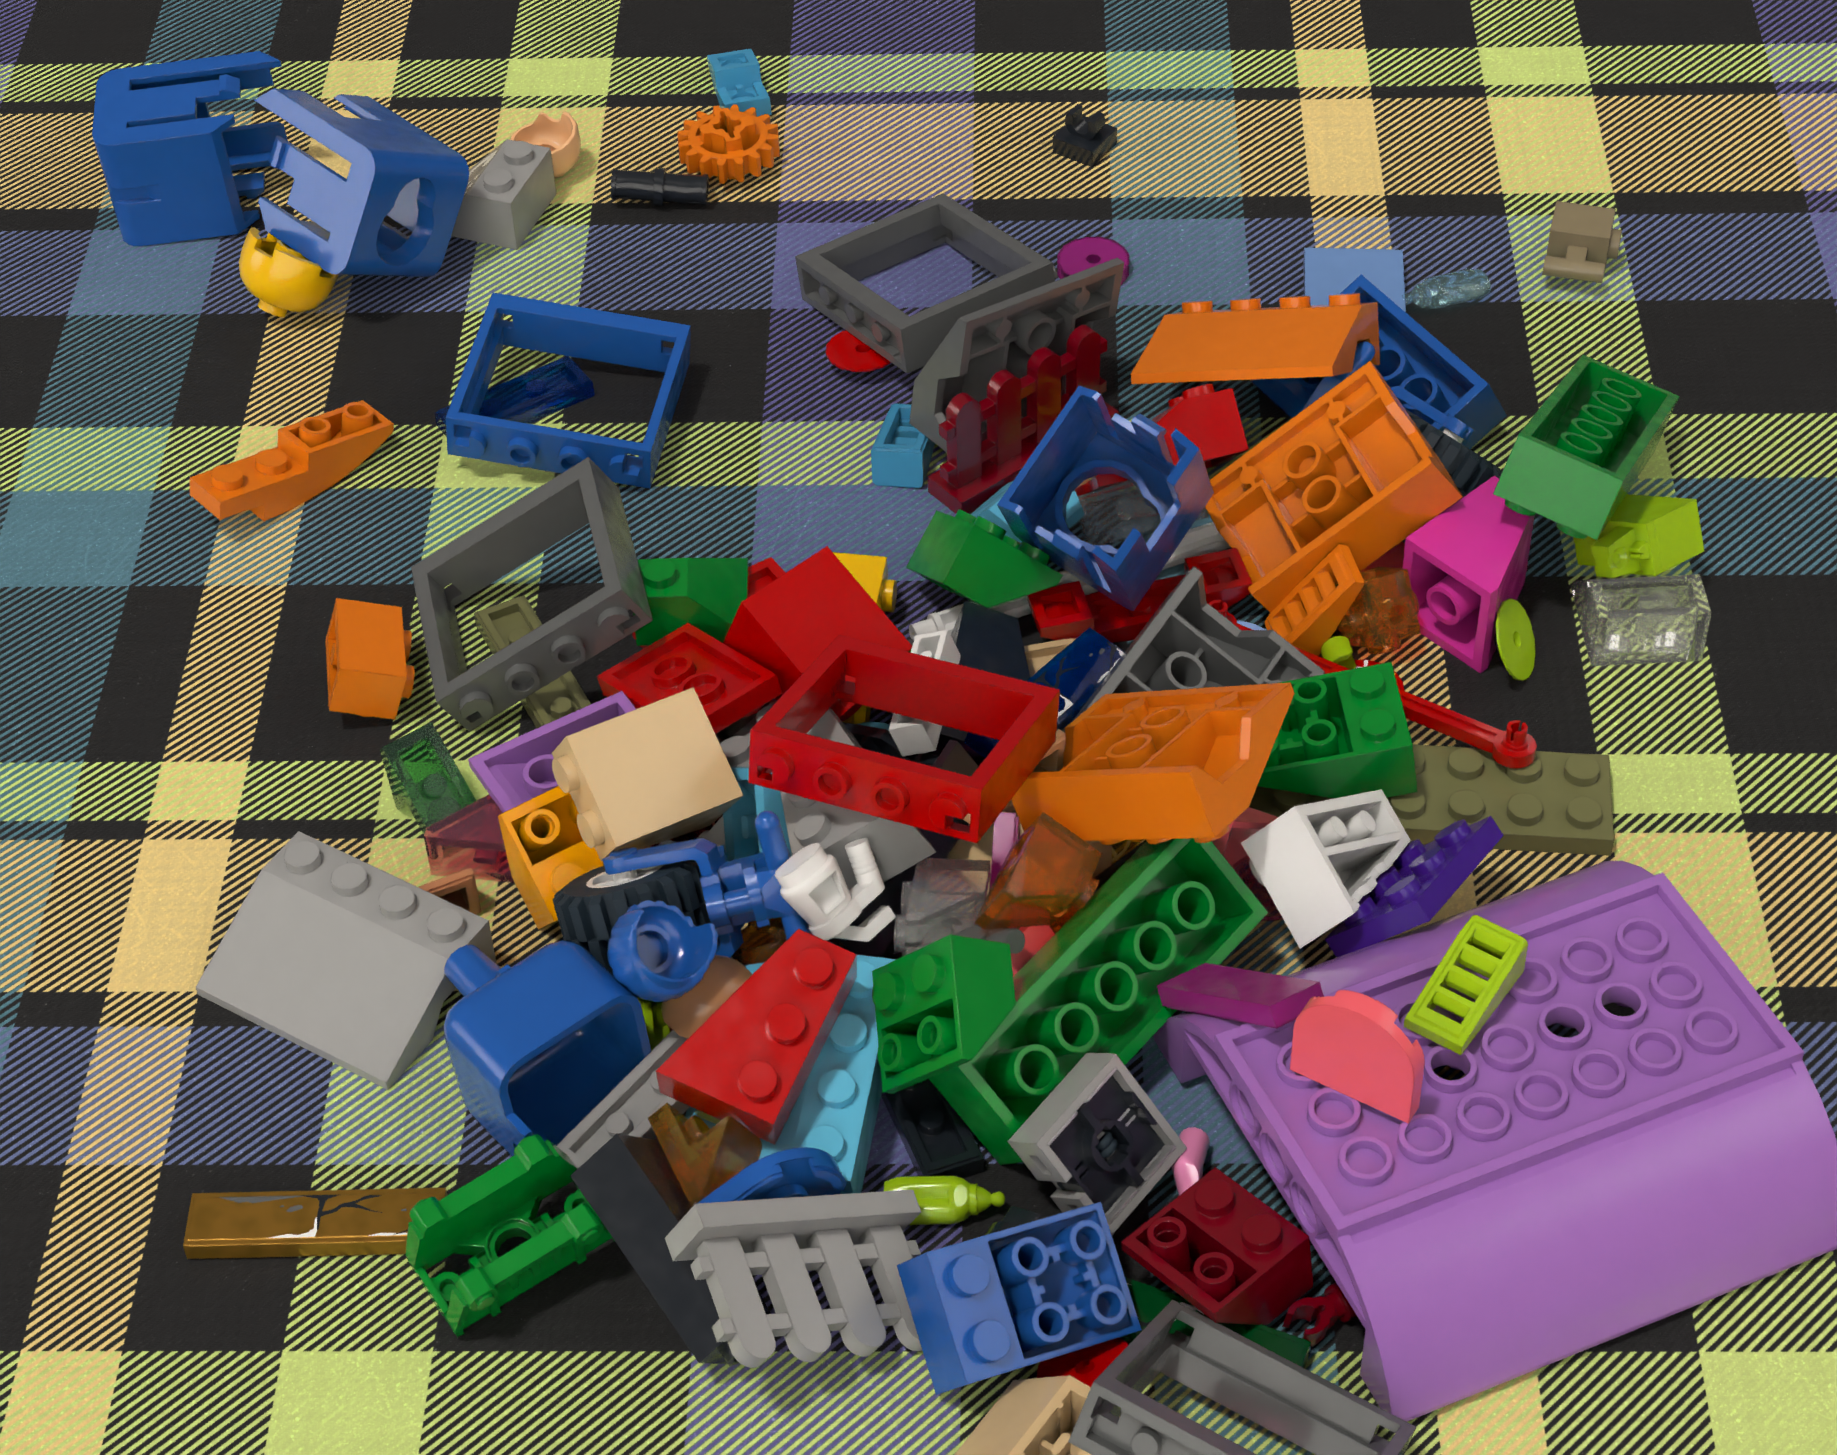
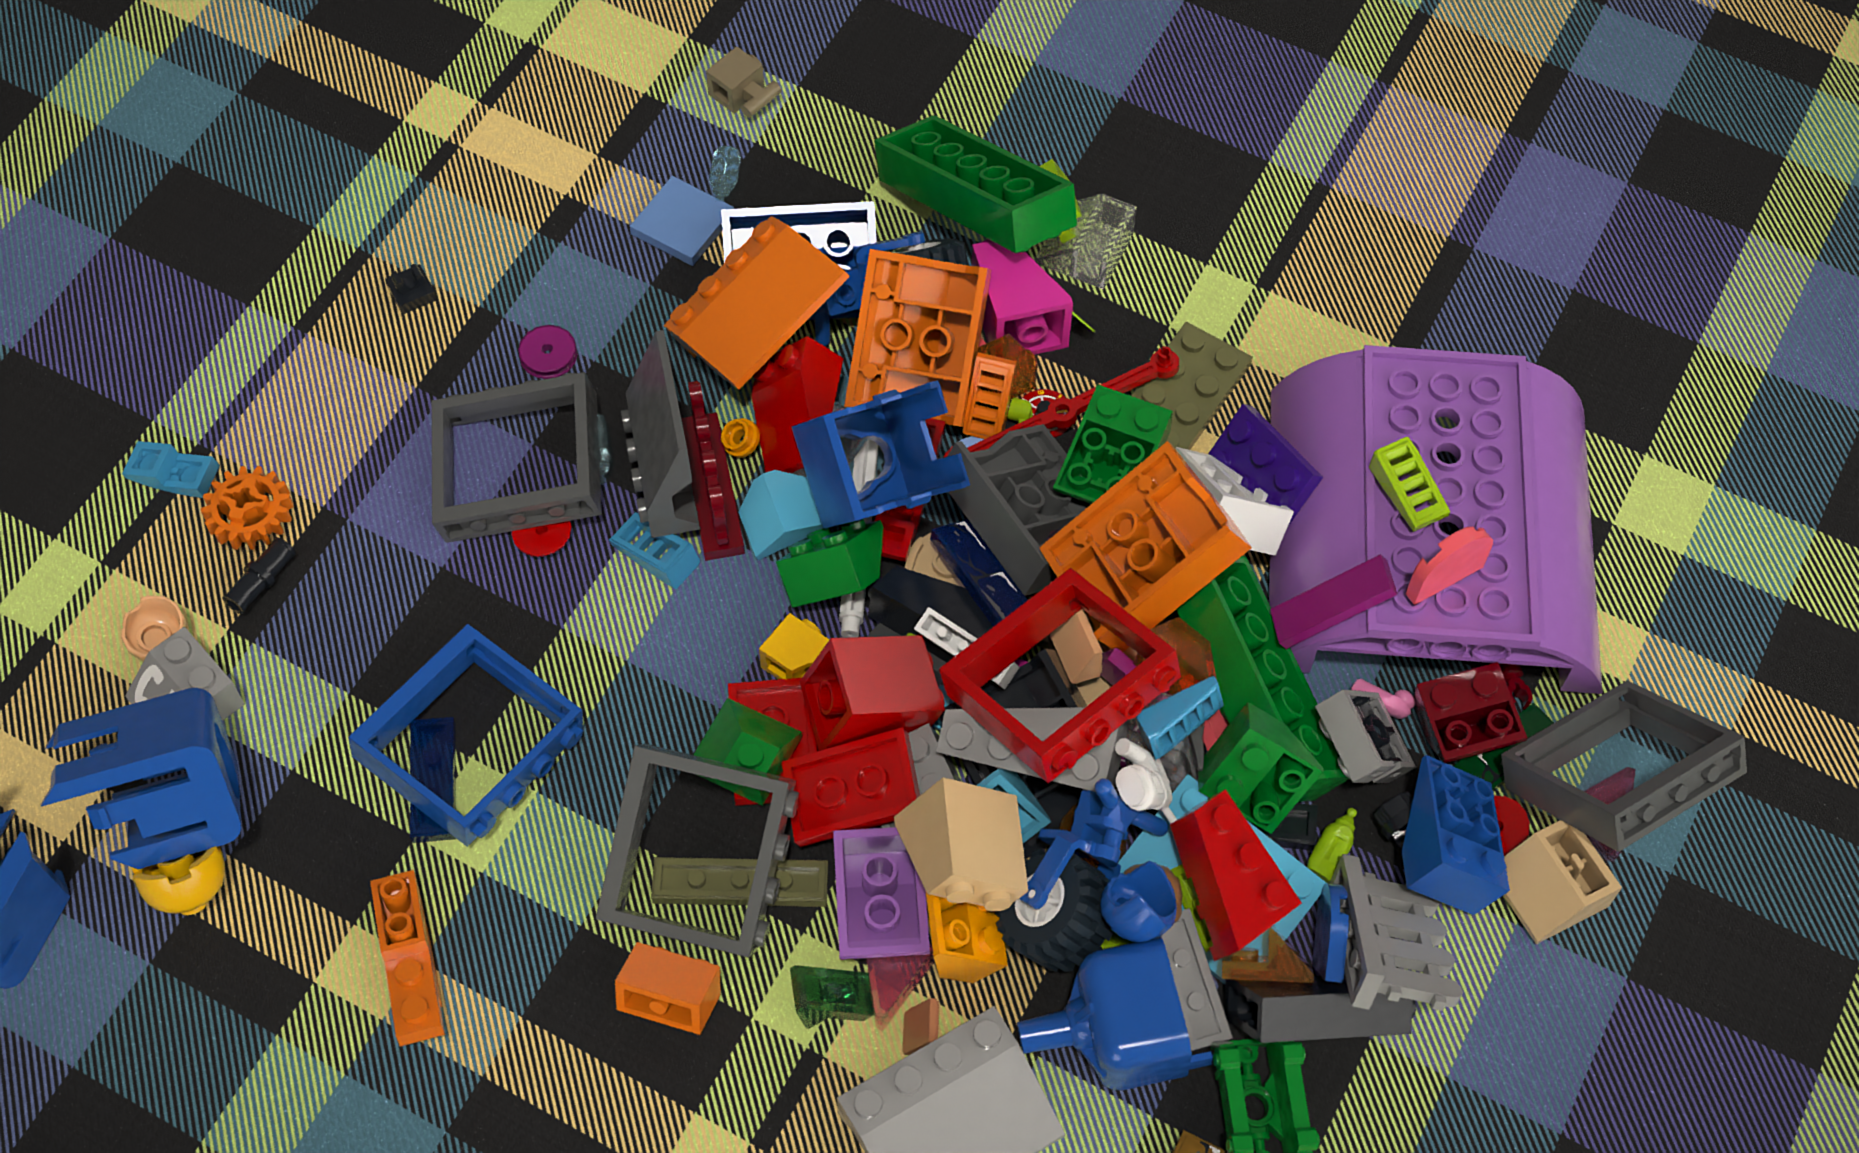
camera: 65 degrees left, 15 degrees up
(903, 886) = (1178, 716): none -> dark azure slope

